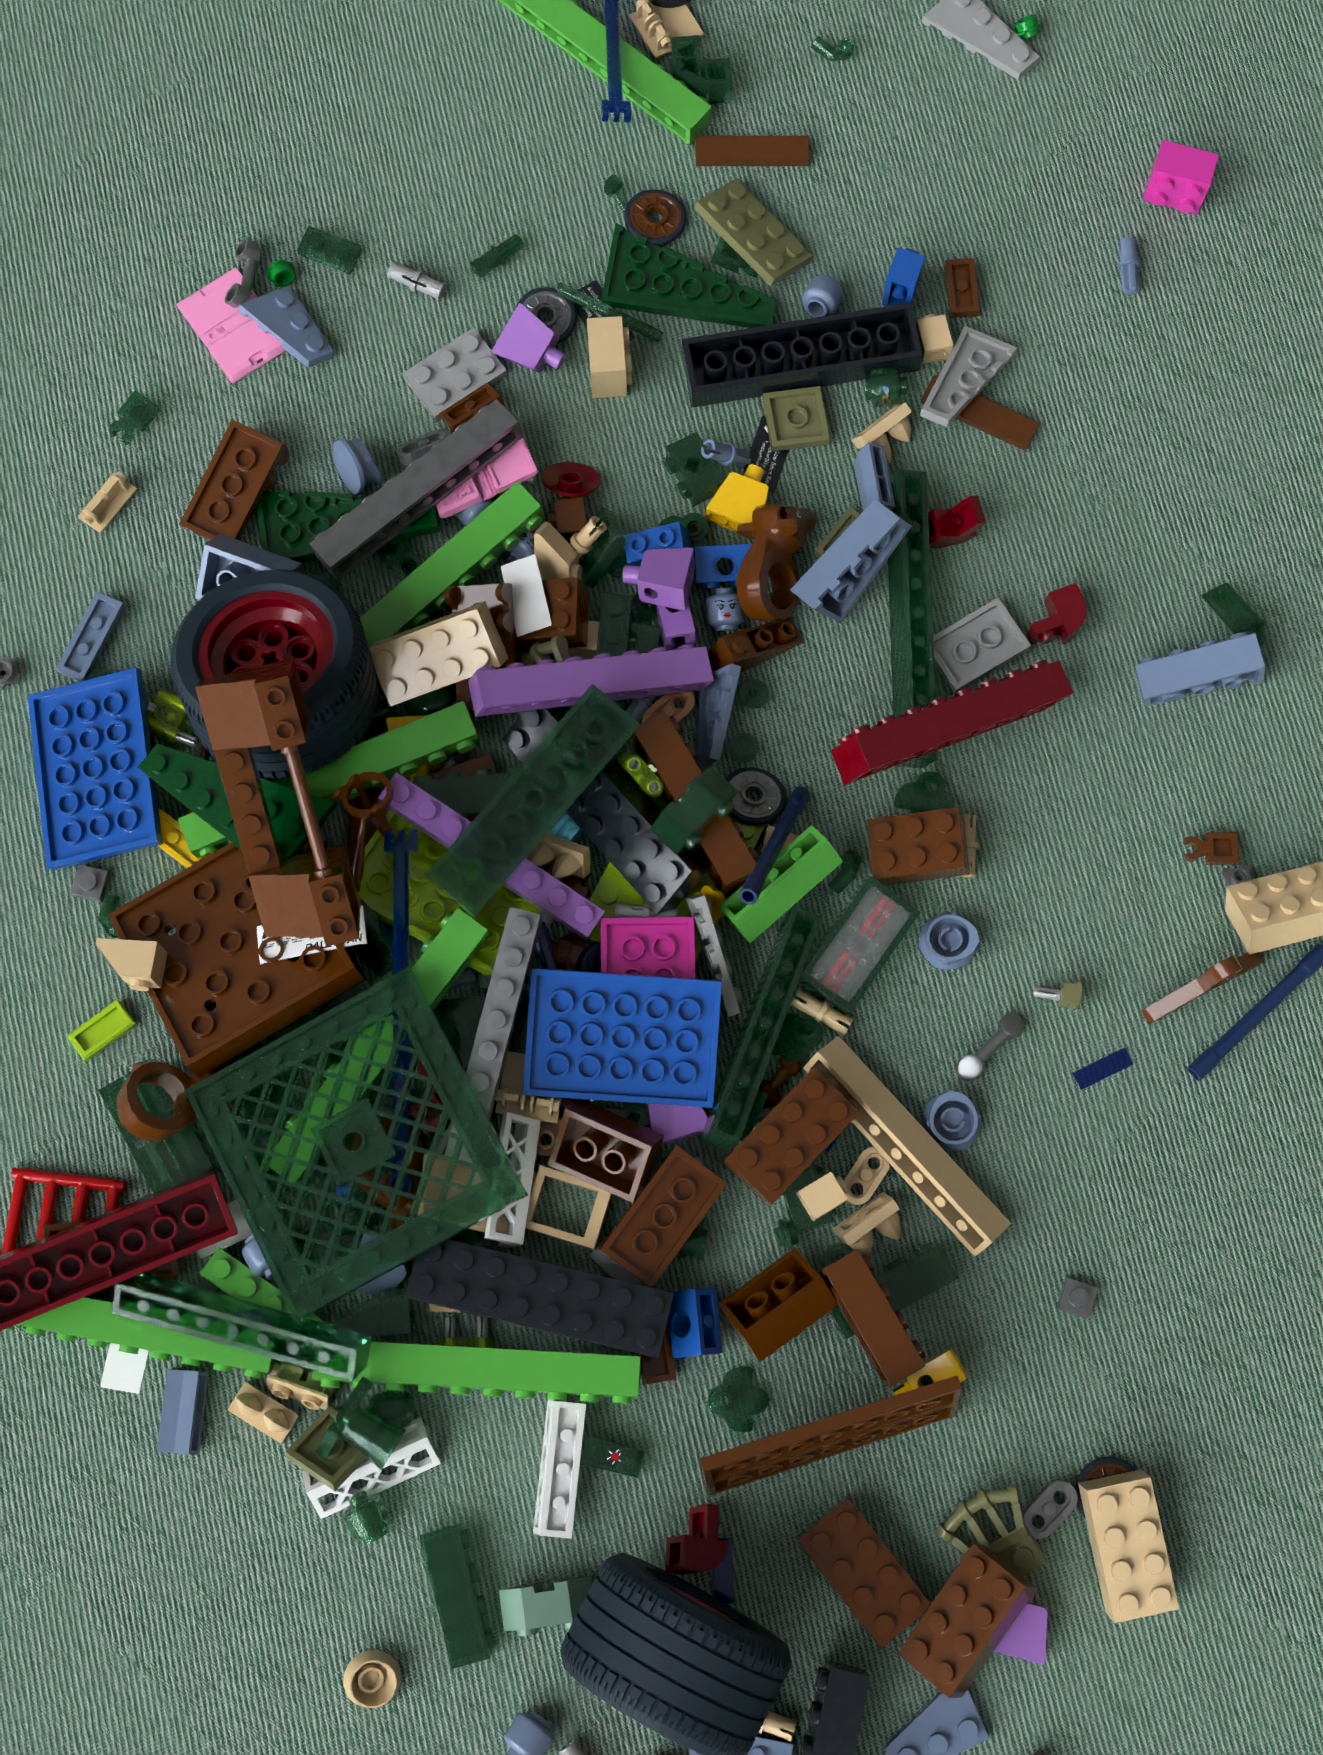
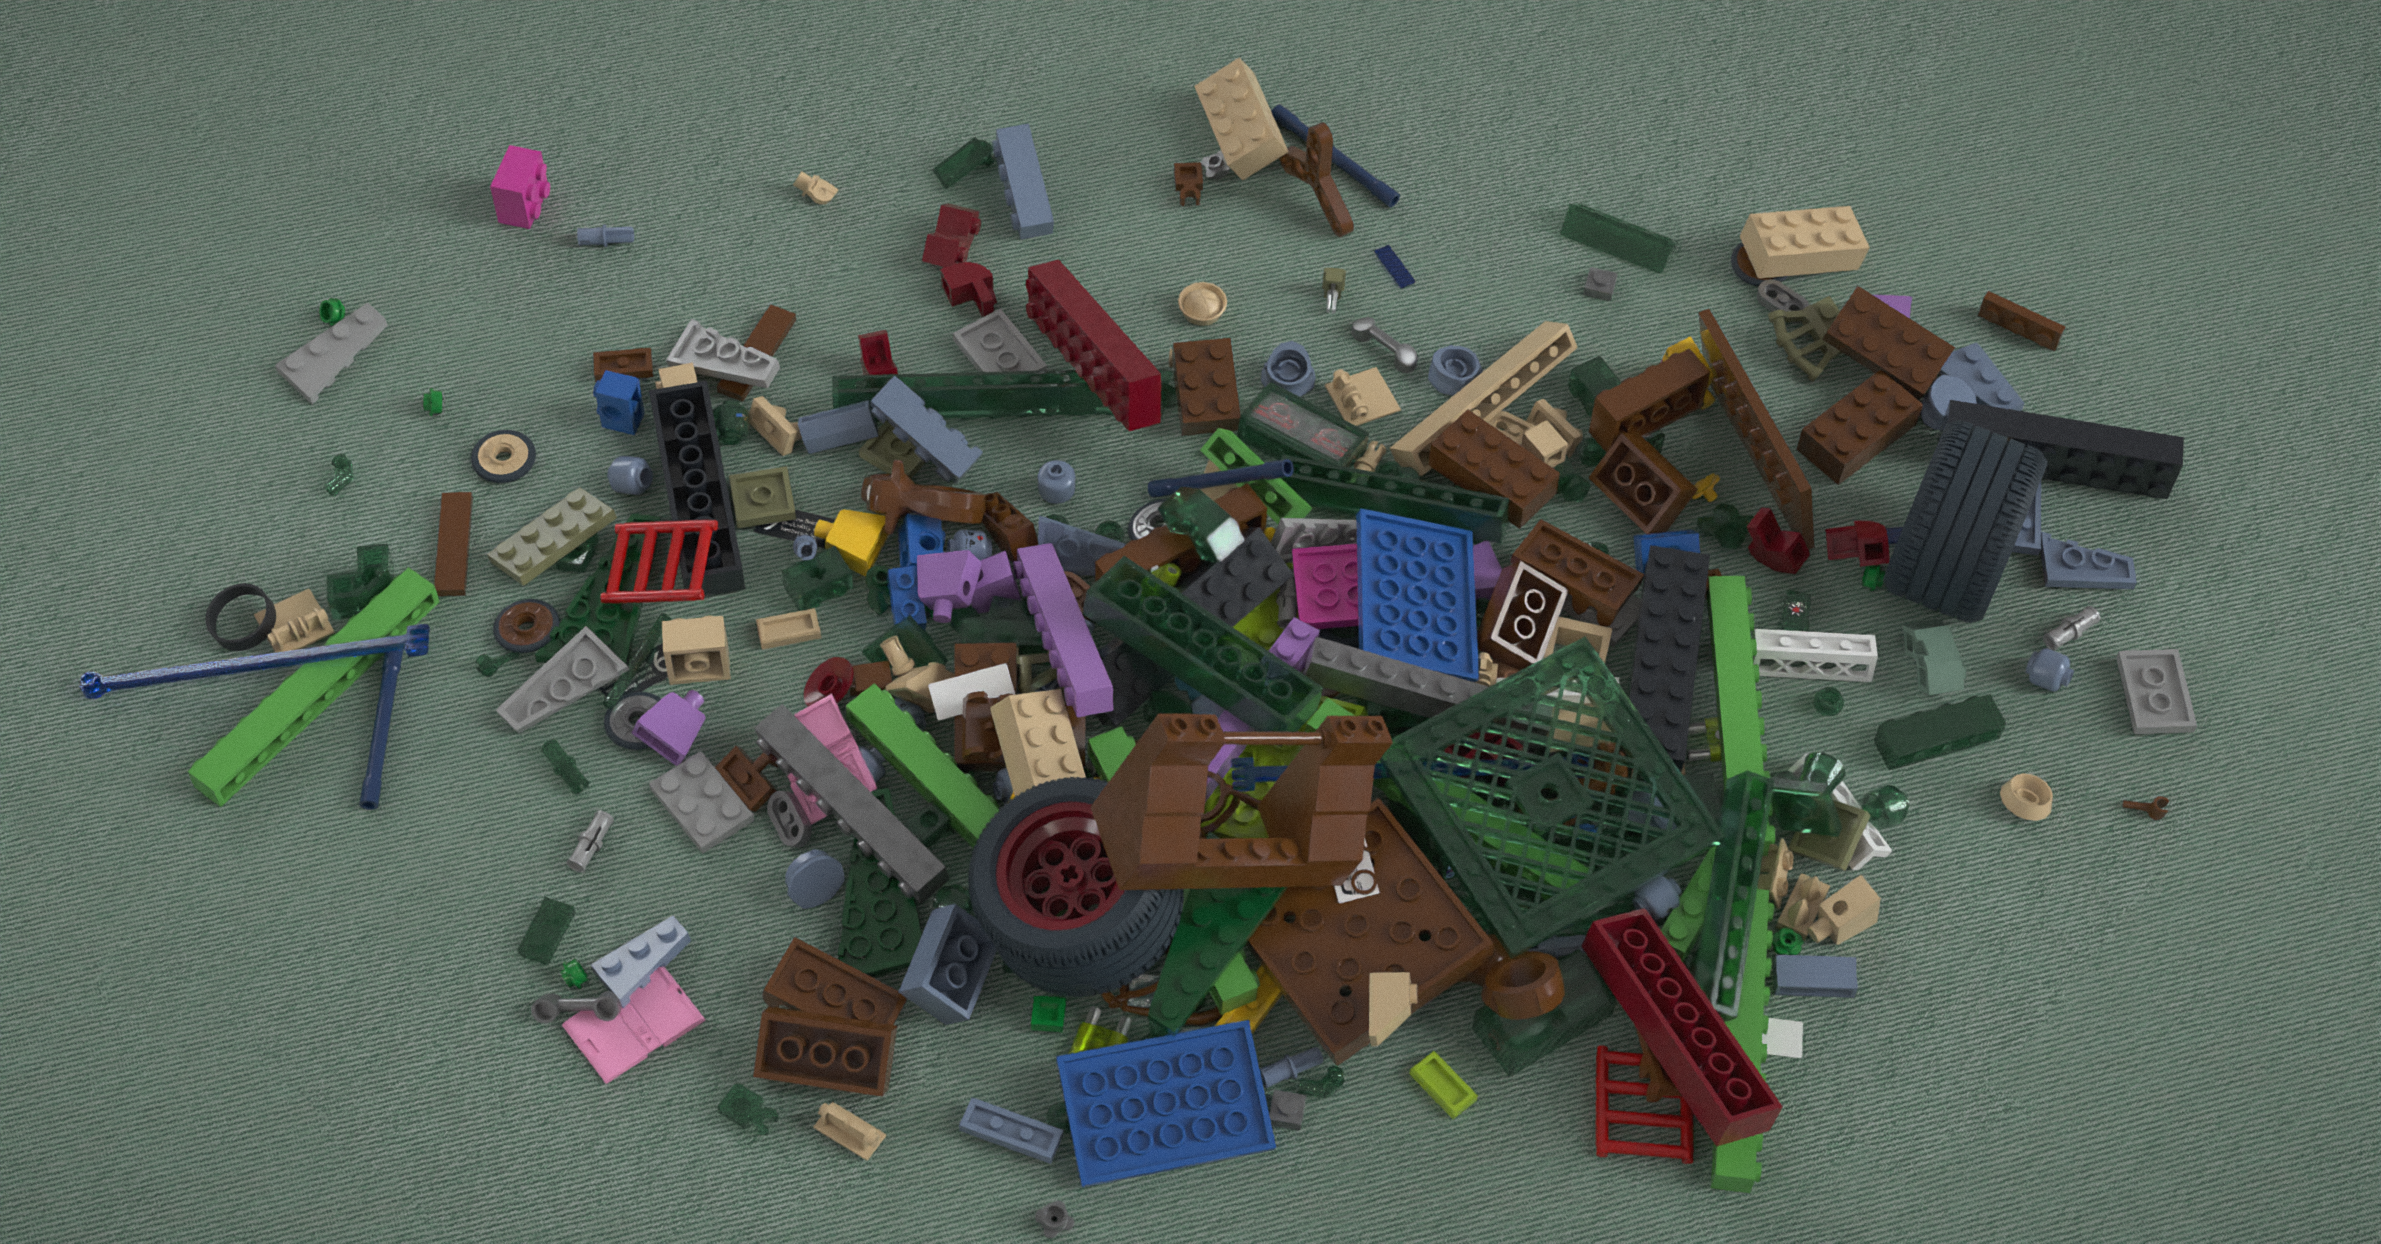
camera: 95 degrees left, 20 degrees down
(127, 878) = (1290, 1066): none -> sand blue axle
(170, 473) = (825, 1051): none -> reddish brown brick
(229, 1393) = (1783, 948): none -> green plate
(241, 1463) = (1846, 912): none -> tan torso
(492, 100) = (372, 782): none -> dark blue piece
(495, 1482) = (1830, 695): none -> clear green plate
(589, 251) = (568, 676): none -> light grey wing
(644, 447) = (788, 628): none -> tan tile
(658, 1554) = (1873, 577): none -> green plate
(707, 1439) = (1773, 547): none -> dark red brick
(733, 331) = (667, 592): none -> red bar
(785, 1379) = (1706, 486): none -> yellow plant
(801, 703) = (1056, 481): none -> sand blue head
(853, 172) = (509, 470): none -> wheel
(895, 1687) = (1938, 397): none -> sand blue hat
(915, 121) = (432, 402): none -> green plate
(917, 1017) = (1361, 396): none -> tan hinge
(1043, 854) = (1202, 303): none -> tan hat
(1128, 600) = (952, 235): none -> dark red brick
(1146, 1327) = (1617, 237): none -> clear green panel
(1195, 466) = (816, 188): none -> tan piece

